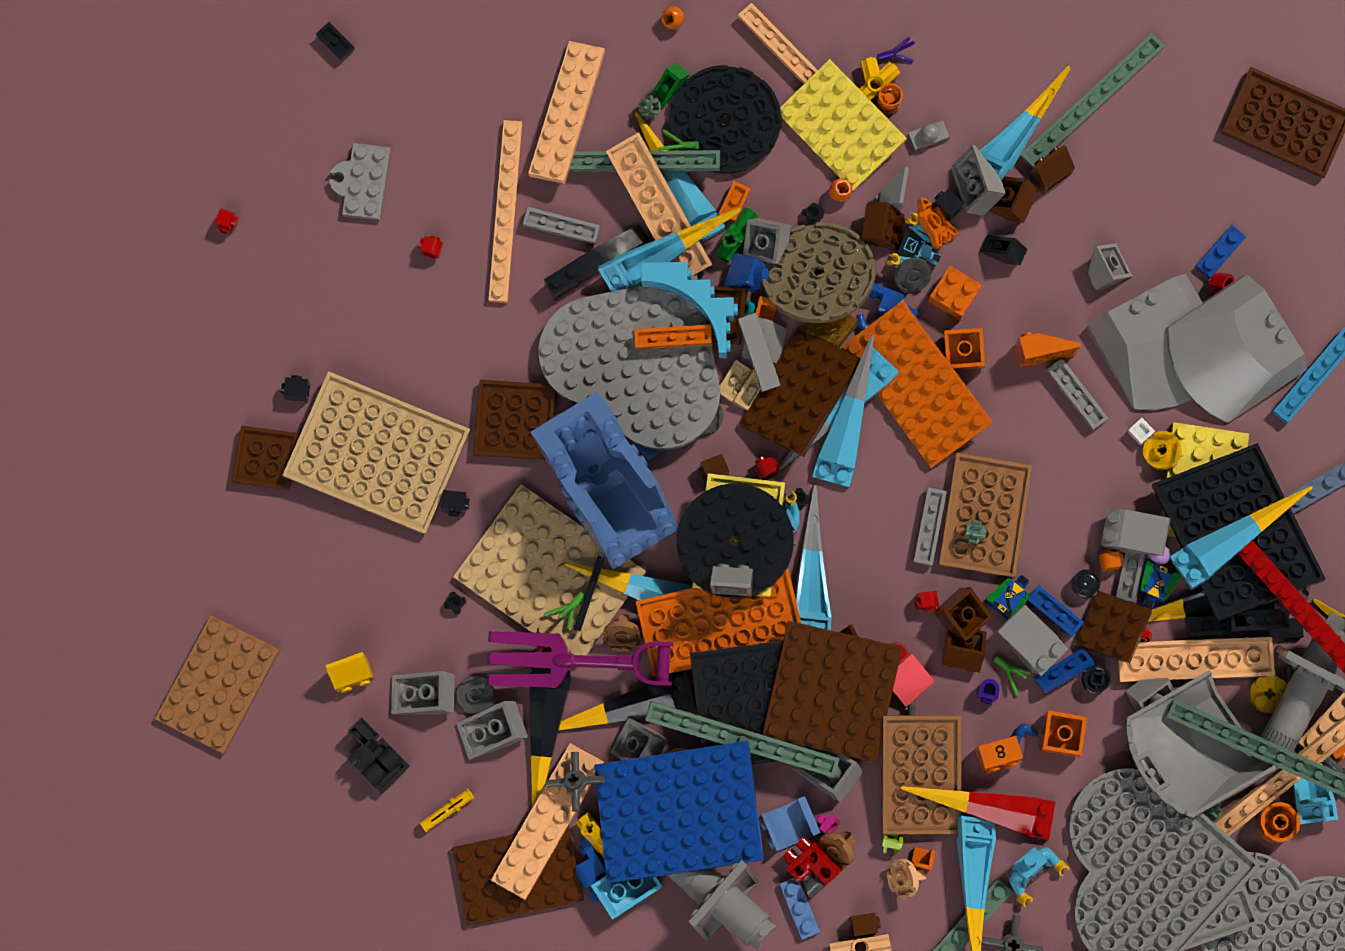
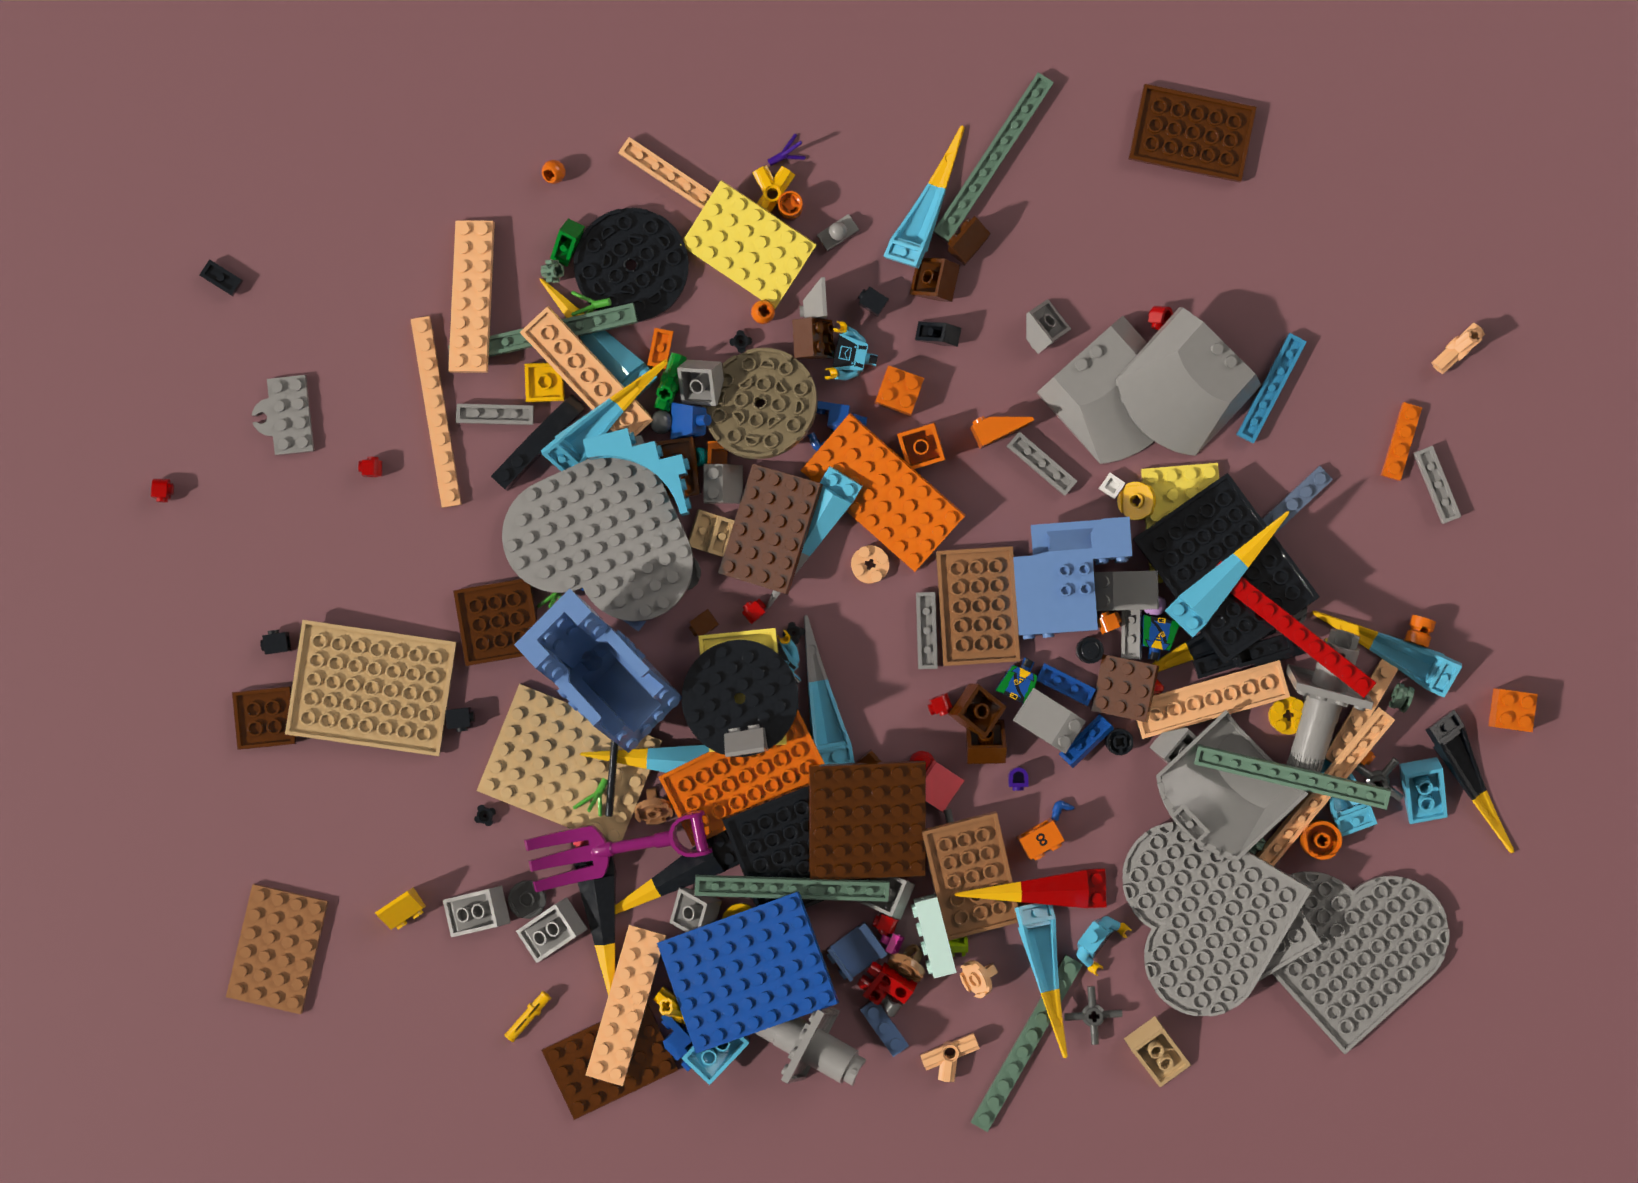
camera: 15 degrees left, 10 degrees up
(375, 759) = (446, 986): black plate -> none
(579, 785) = (647, 968): dark grey bar -> none
(615, 208) = (543, 383): none -> yellow plate
(673, 337) = (631, 506): orange plate -> none
(718, 270) = (661, 422): none -> dark grey piece
(758, 352) = (719, 500): light grey tile -> none
(824, 803) = (885, 924): none -> red plate
(833, 332) = (790, 461): clear yellow plate -> none
(840, 448) = (821, 576): medium azure plate -> none
(865, 924) = (949, 1028): reddish brown brick -> none
(871, 825) = (934, 936): none -> light aqua brick
(887, 440) = (874, 574): none -> light nougat plate
(912, 275) = (853, 382): dark grey tile -> none
(923, 858) = (990, 954): orange panel -> none
(935, 224) = (864, 326): orange tile -> none
(975, 532) = (971, 628): sand green gear -> none
(977, 182) = (896, 272): light grey slope -> none
(1008, 668) = (1036, 751): bright green plant -> none
(1063, 734) = (1098, 803): orange brick -> none
(1072, 499) = (1058, 580): none -> medium blue piece
(1220, 252) = (1153, 283): blue plate -> none

